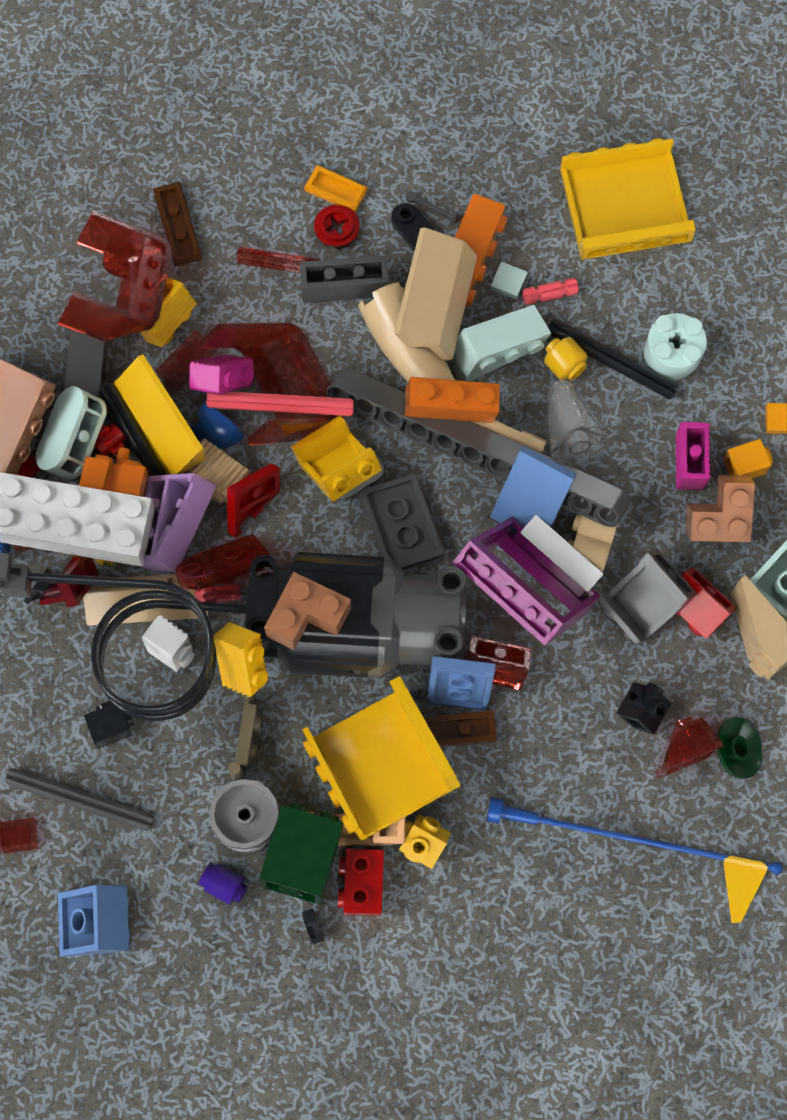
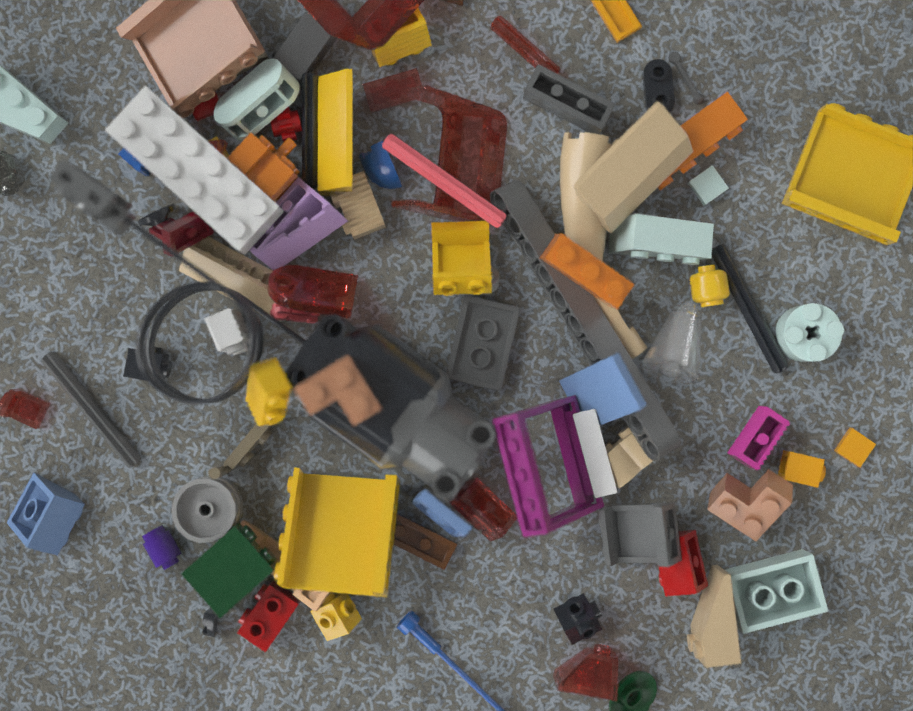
camera: 35 degrees right, 15 degrees up
(221, 374) = (410, 124): dark pink brick -> none
(250, 496) = (374, 244): red wing -> none
(340, 215) = (603, 38): red gear -> none
(550, 291) = (736, 216): coral axle -> none

